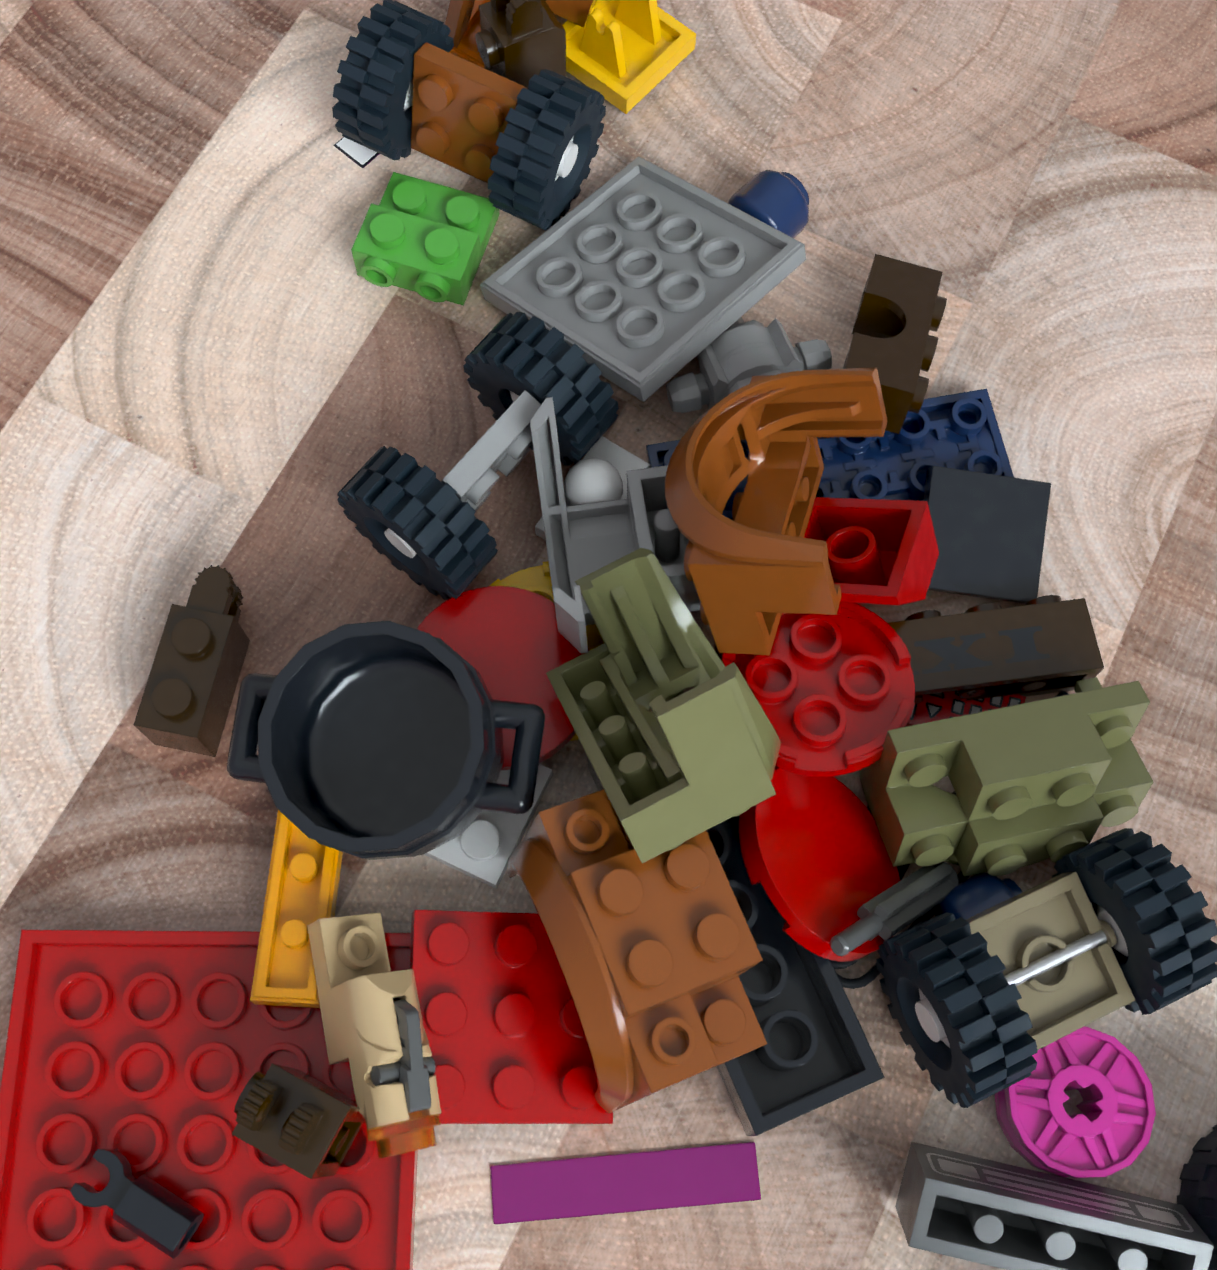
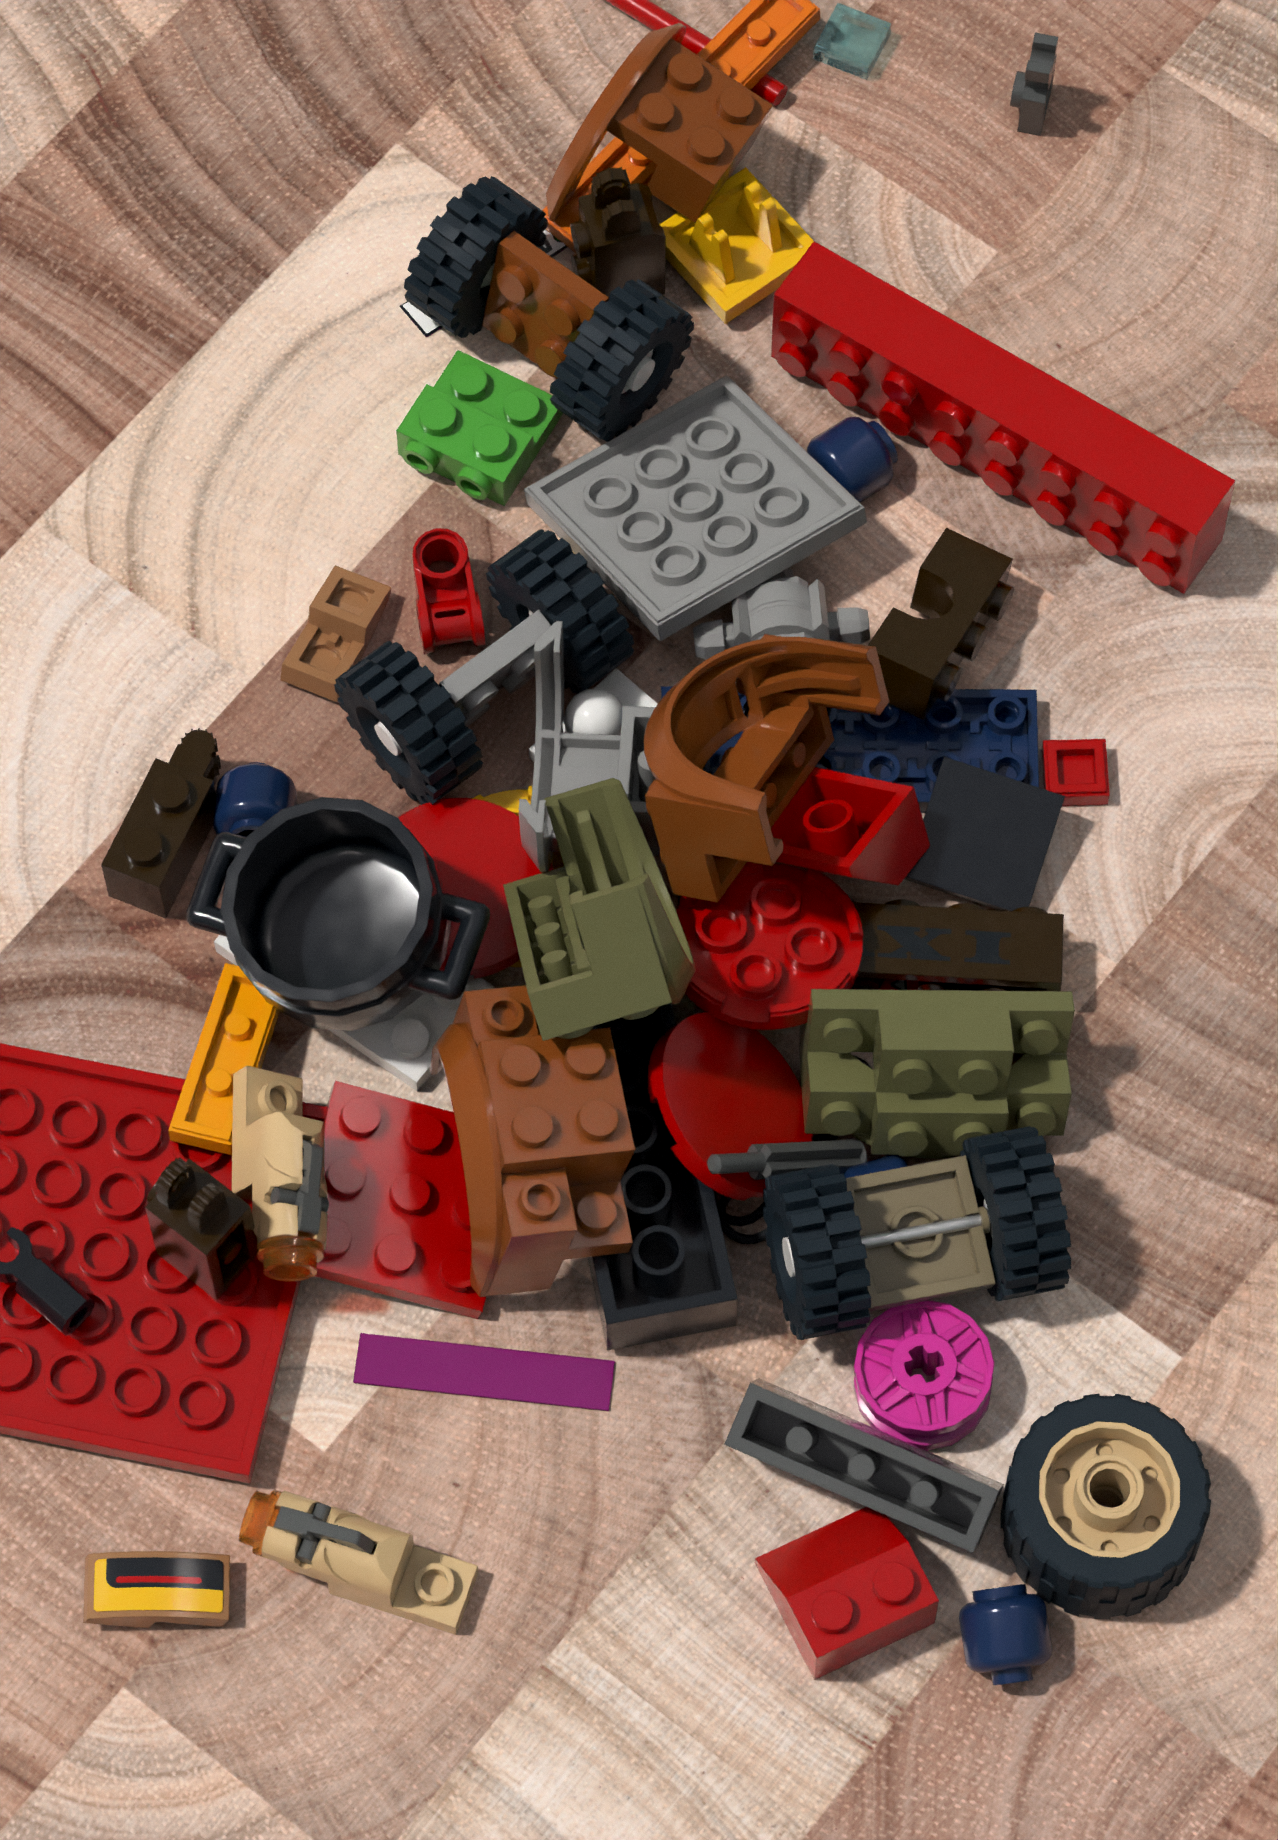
camera: 15 degrees right, 5 degrees down
(277, 627) = (250, 797): none -> dark blue head
(331, 447) = (336, 632): none -> medium nougat slope
(429, 399) = (446, 601): none -> red piece
(899, 147) = (1000, 418): none -> red brick
(1041, 455) = (1076, 770): none -> red tile

